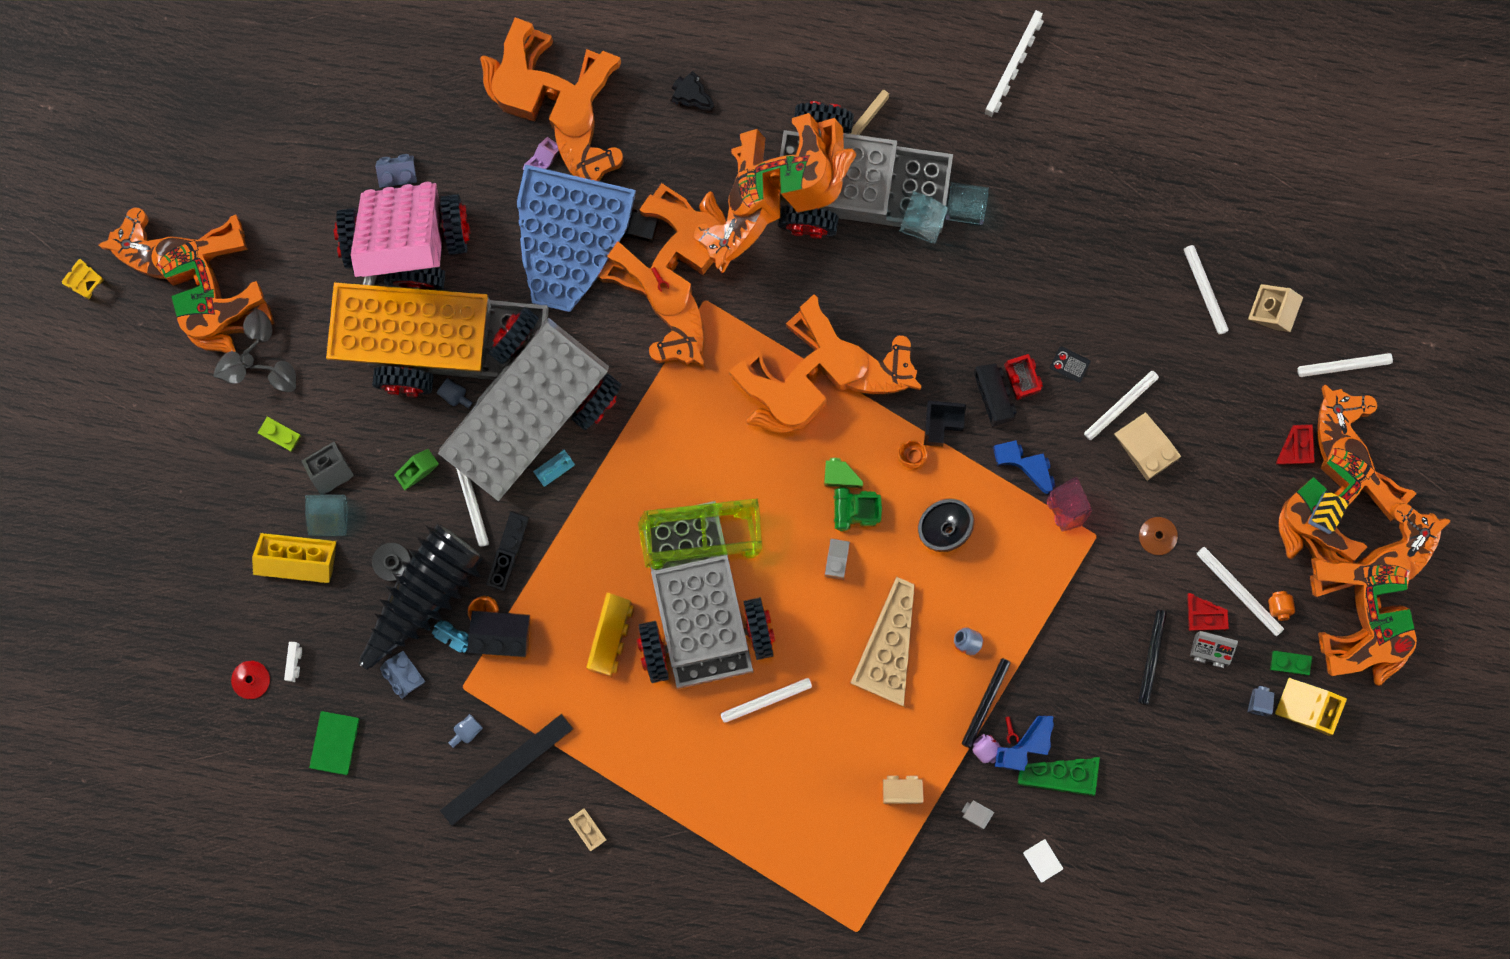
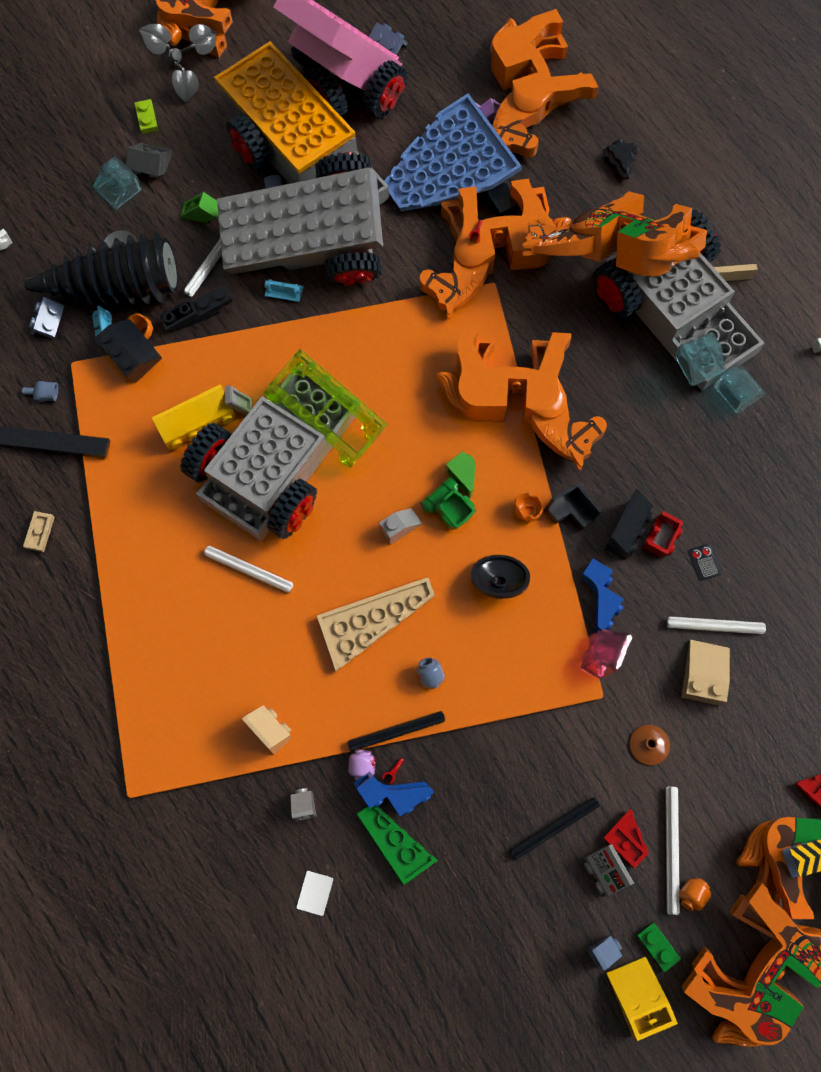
camera: 40 degrees right, 10 degrees down
(294, 558) = (67, 188): yellow slope -> none
(626, 589) = (237, 400): none -> light grey tile

